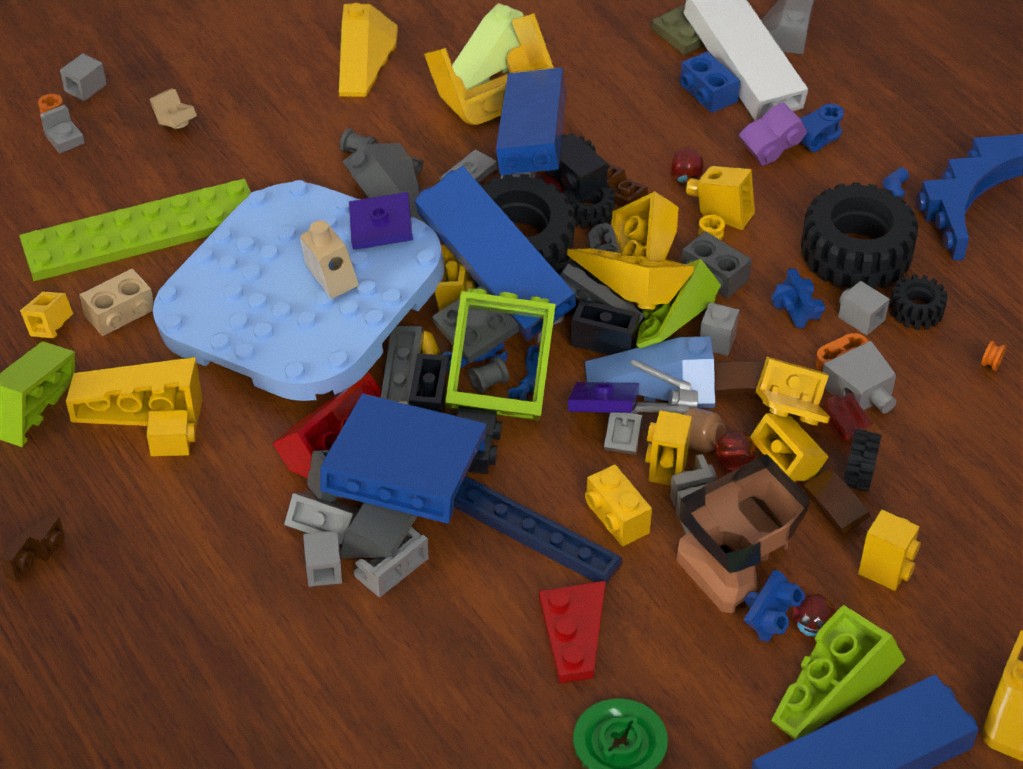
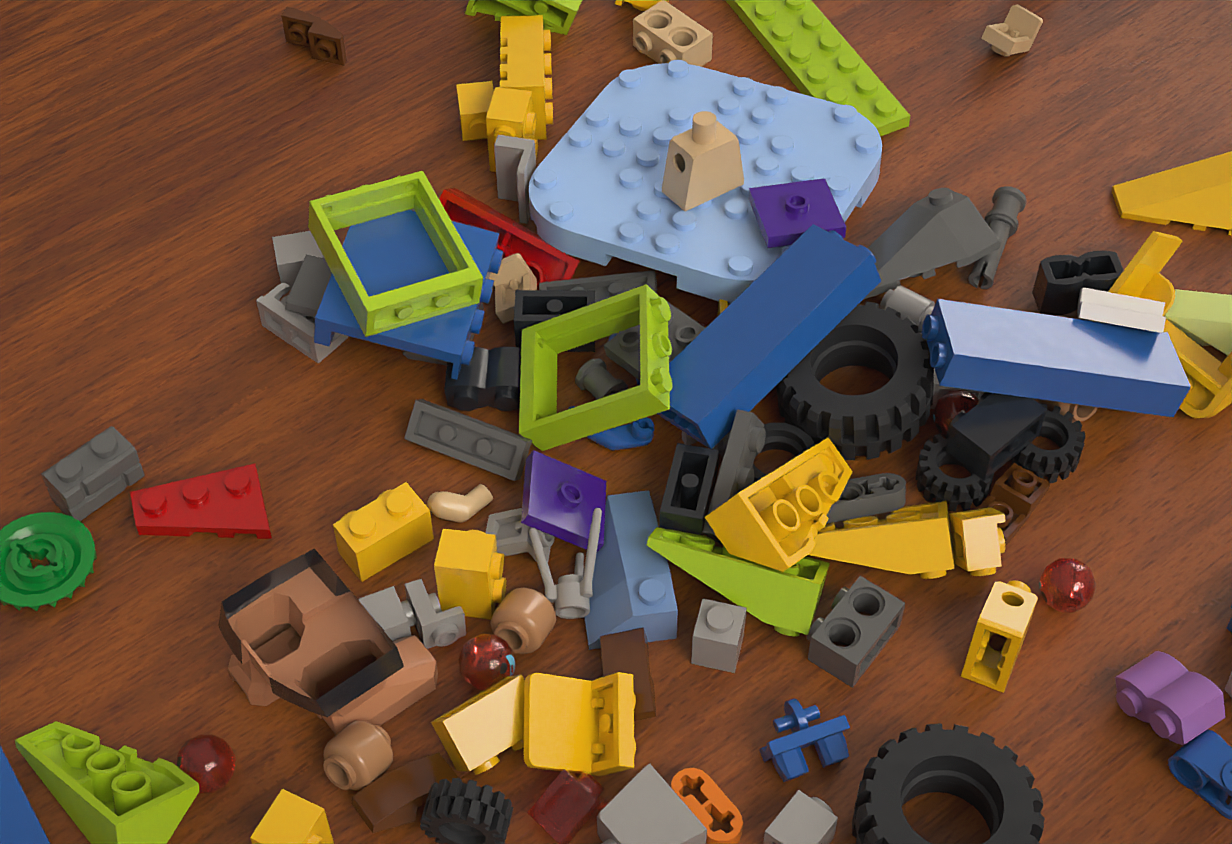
camera: 85 degrees right, 5 degrees up
(216, 401) = (510, 115): none -> yellow brick
(272, 396) = (514, 167): none -> light grey panel
(390, 410) = (411, 302): none -> lime window
(441, 115) = (1063, 276): none -> black brick
(489, 88) = (1121, 310): none -> white slope
(532, 455) = (468, 439): none -> dark grey plate
(536, 531) = (357, 455): dark blue tile -> none
(544, 696) = (93, 474): none -> dark grey brick
(589, 461) = (459, 507): none -> tan arm
(649, 183) = (978, 540): none -> yellow brick
(713, 225) = (948, 617): yellow bush -> none
(769, 607) = (214, 706): blue hips -> none
(815, 529) = (357, 755): none -> medium nougat head

